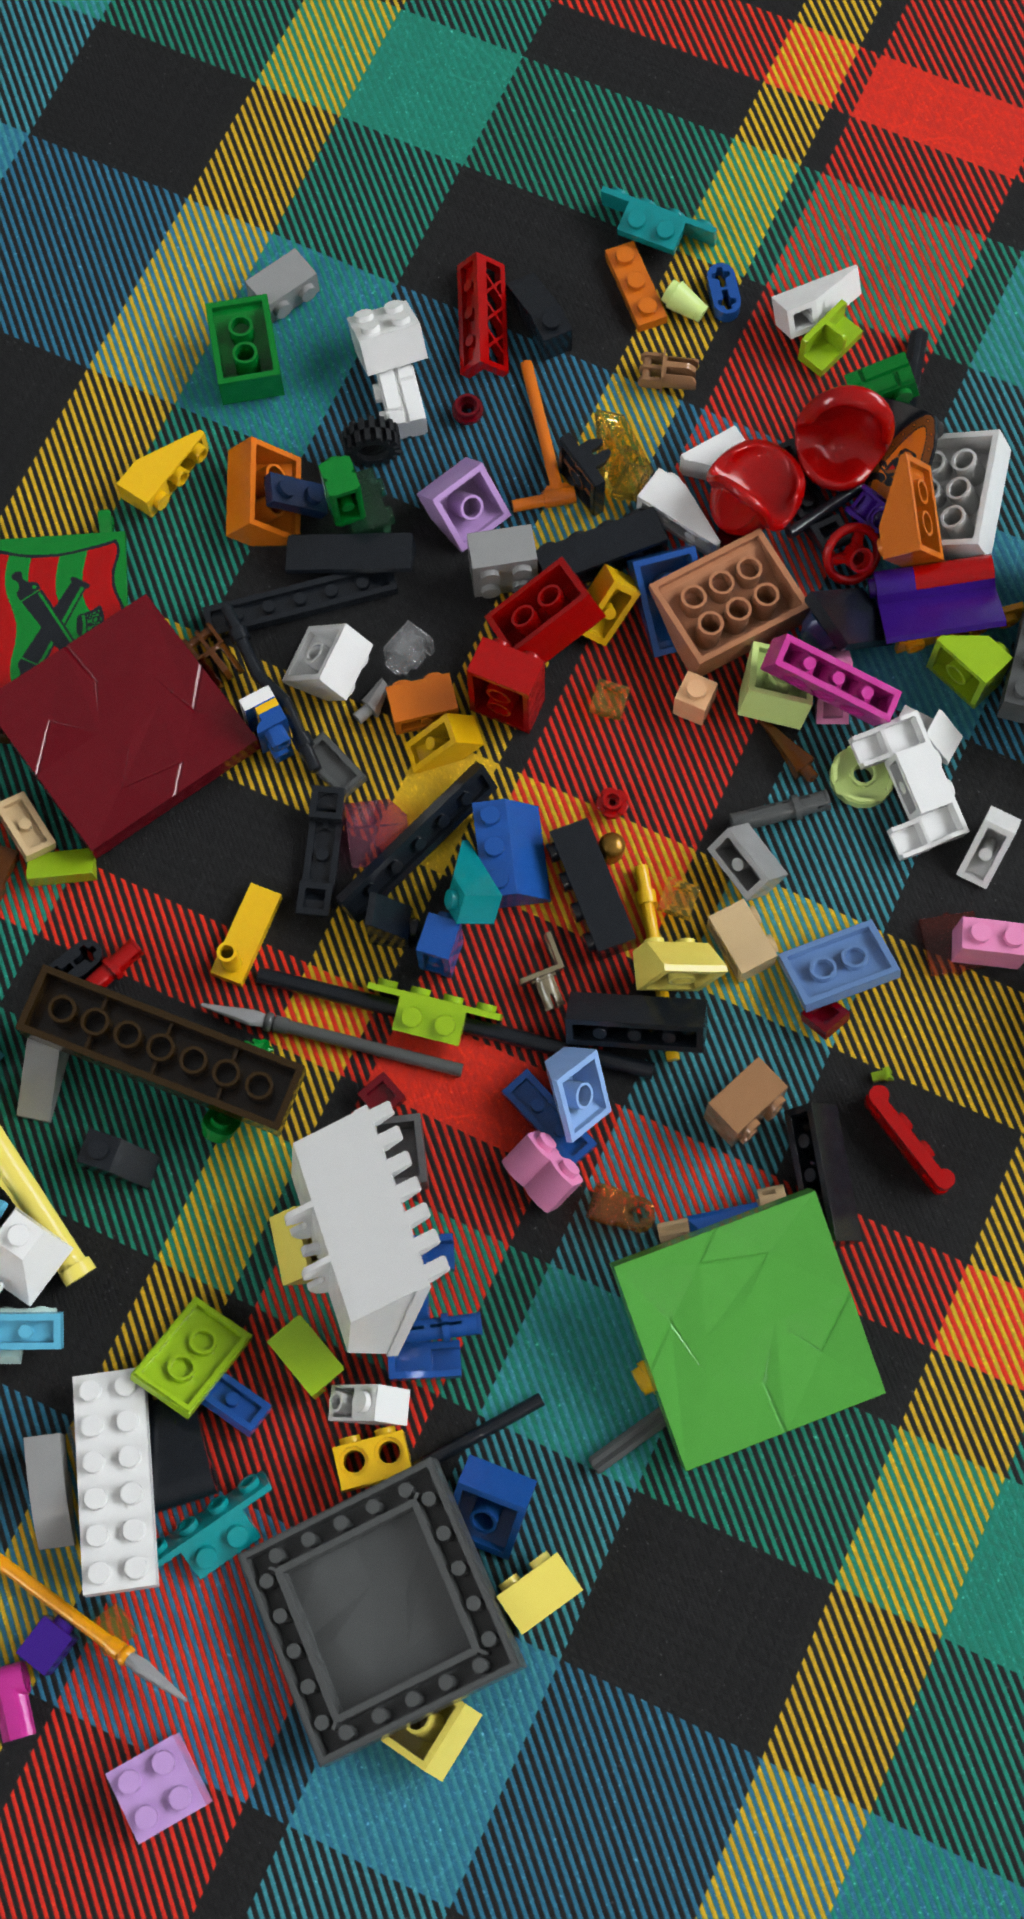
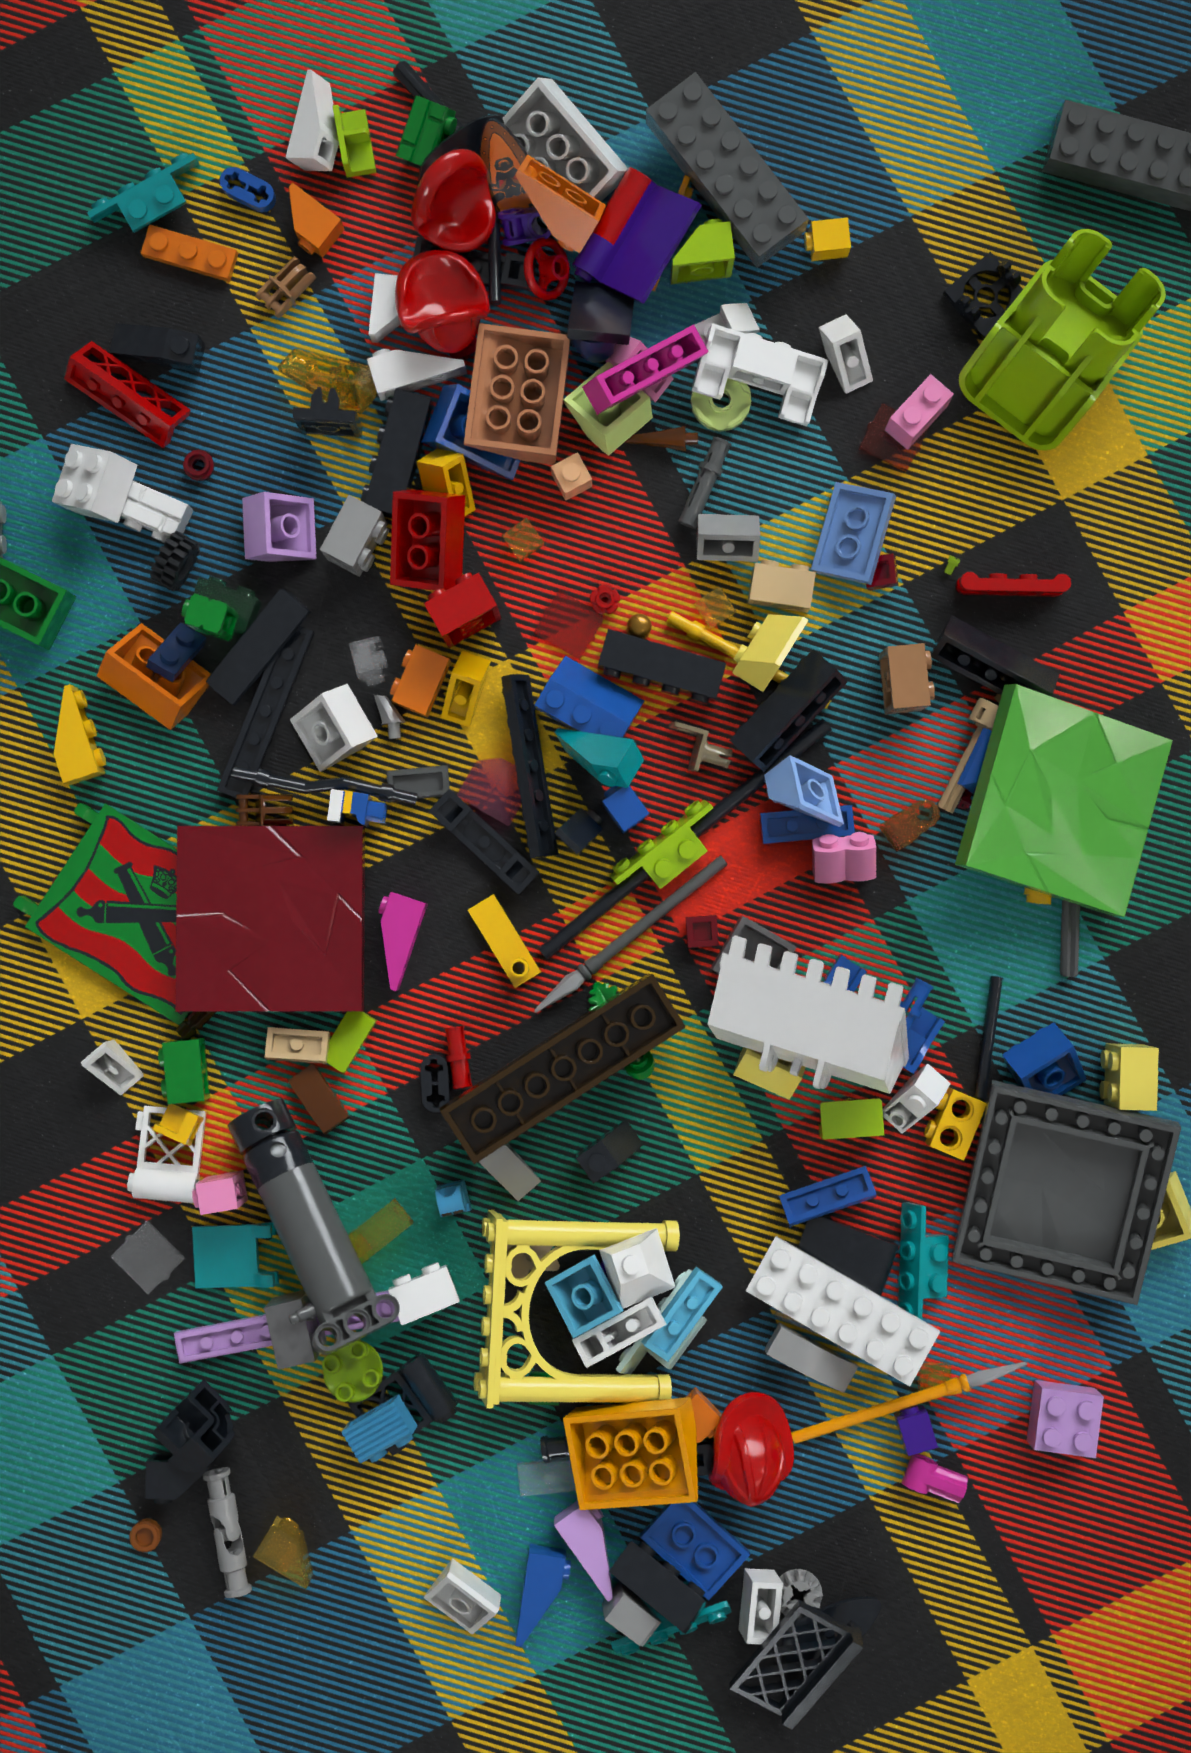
camera: 55 degrees left, 15 degrees up
(189, 839) = (400, 929): none -> dark pink slope
(191, 1357) = (792, 1198): lime tile -> none
(557, 492) = (322, 449): orange bar -> none
(567, 791) = (569, 625): none -> clear red piece
(684, 301) = (233, 226): yellowish green cone -> none
(736, 355) = (313, 223): none -> orange slope

